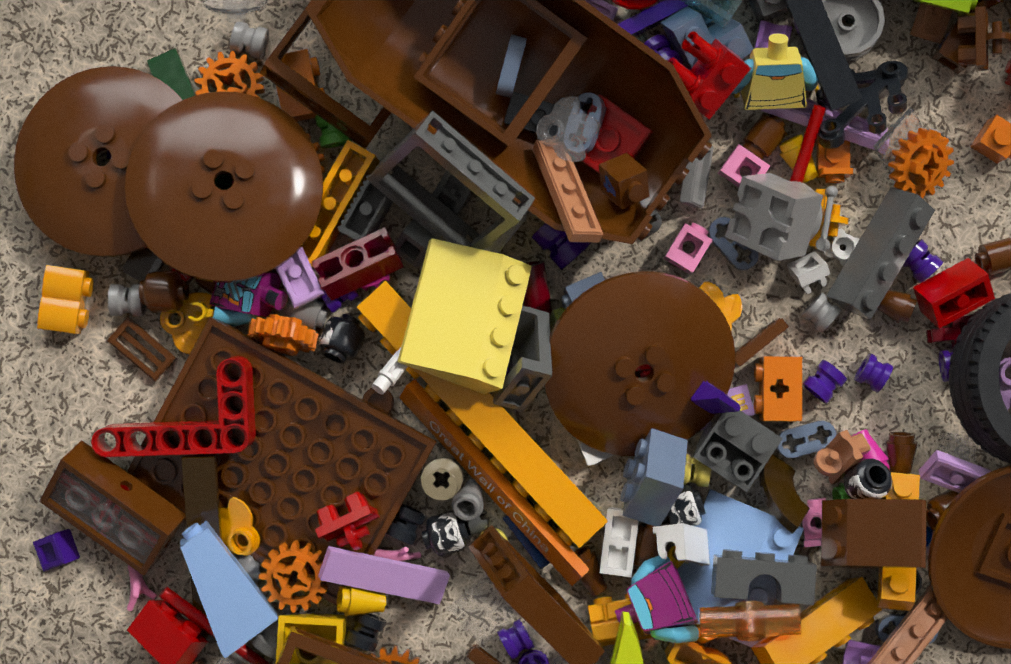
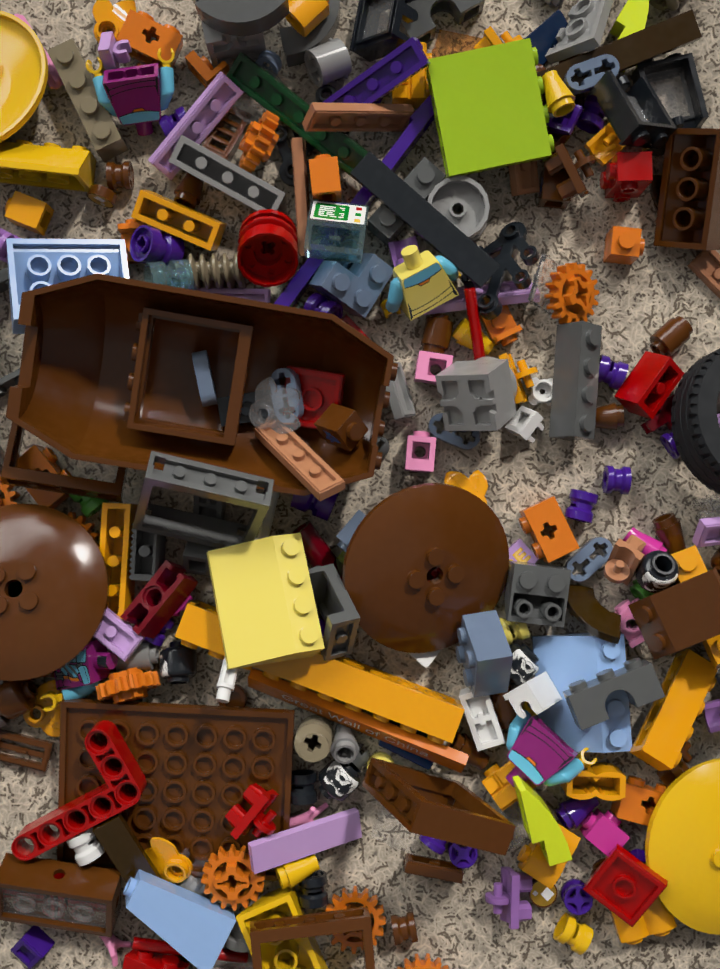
camera: 25 degrees left, 0 degrees up
(164, 472) = (85, 847): none -> white wheel
(713, 74) = (371, 305): red brick -> none
(714, 400) = (501, 566): dark purple slope -> none
(750, 621) = (619, 734): clear orange piece -> none
(759, 341) = (513, 499): reddish brown tile -> none
(821, 312) = (551, 452): light grey wheel -> none
(822, 243) = (525, 398): light grey hinge -> none

